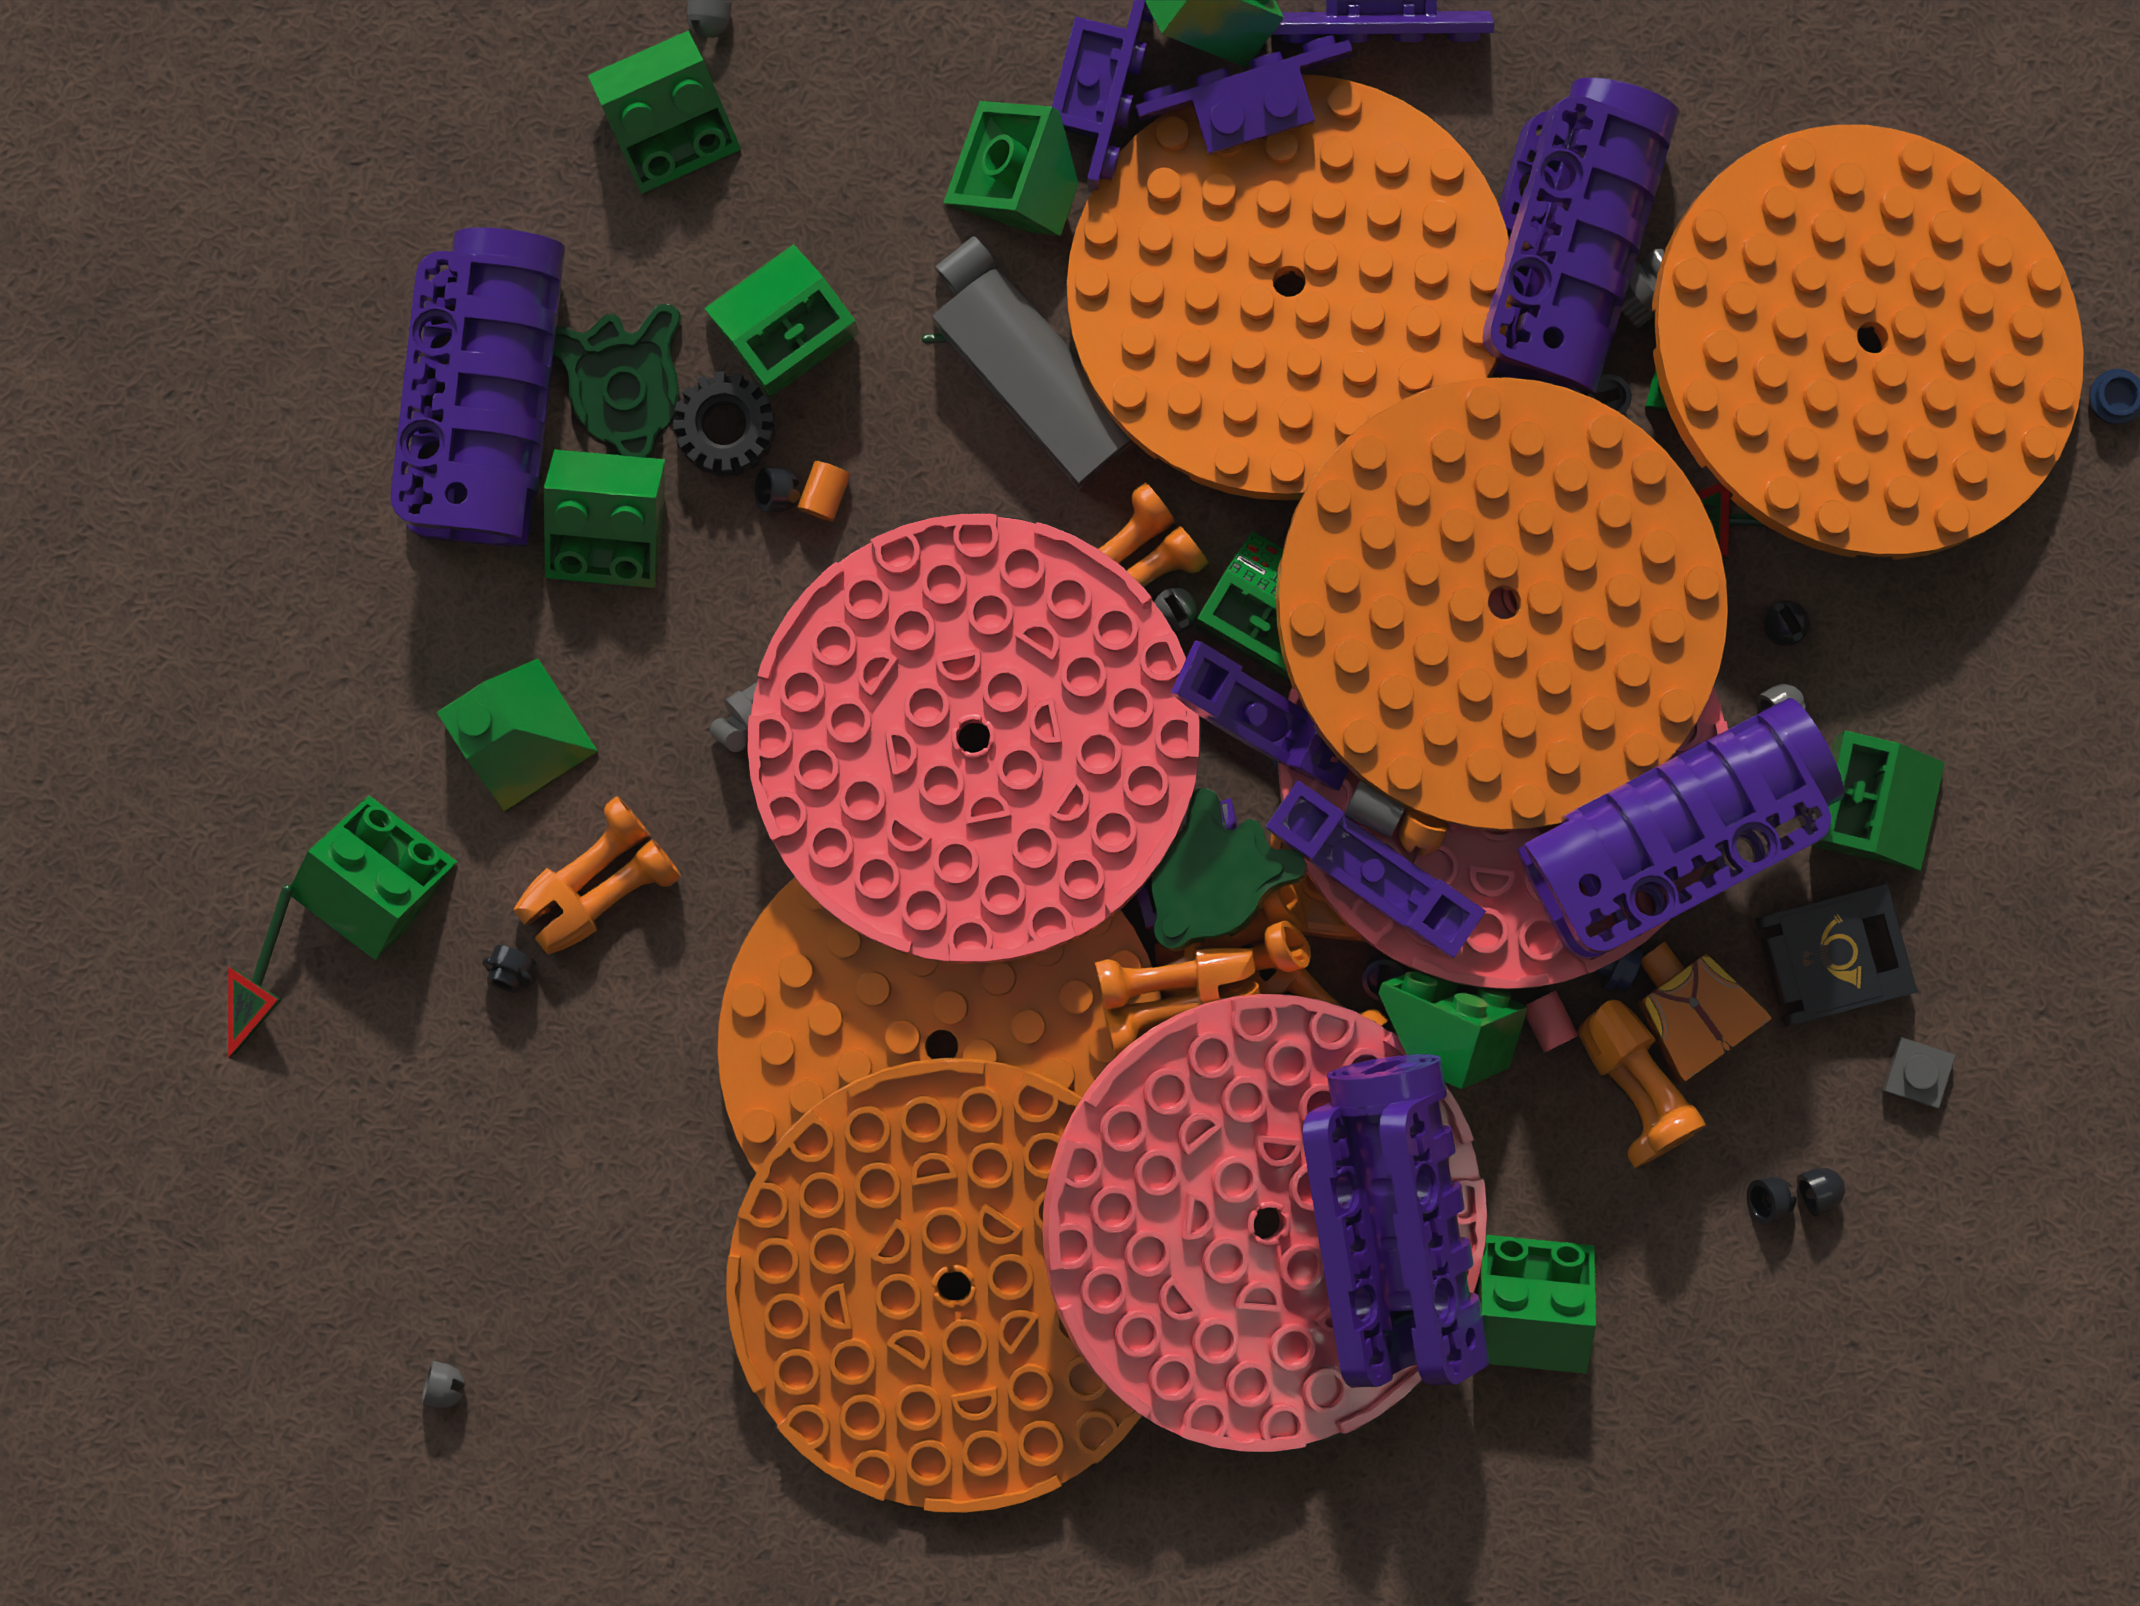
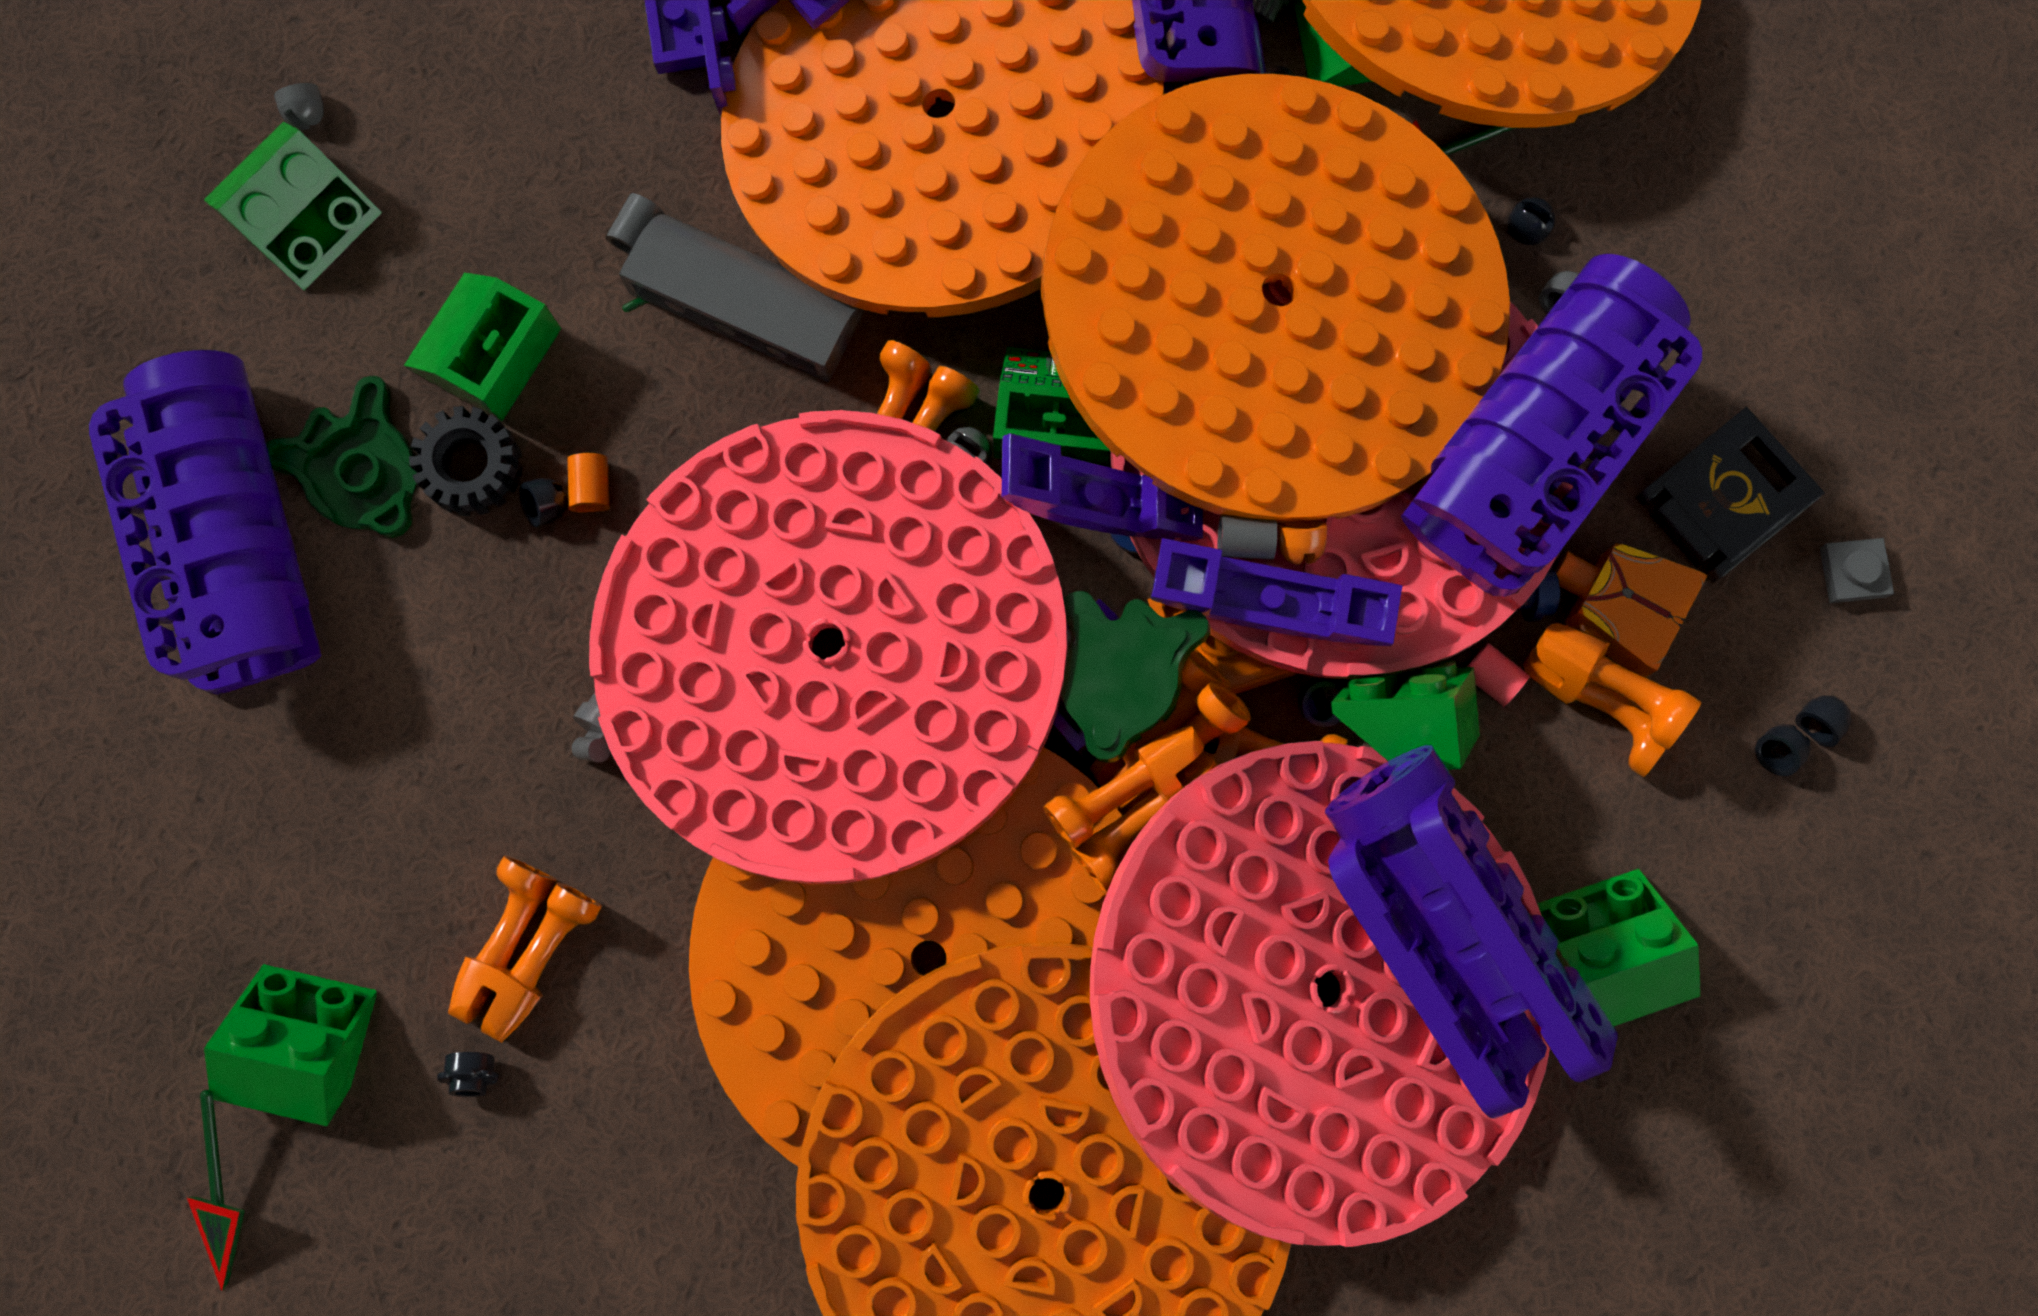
camera: 25 degrees left, 5 degrees down
(517, 733) = (381, 838): green slope -> none
(603, 518) = (384, 597): green slope -> none
(1016, 168) = (644, 117): green slope -> none
(1885, 800) = (1724, 333): green slope -> none

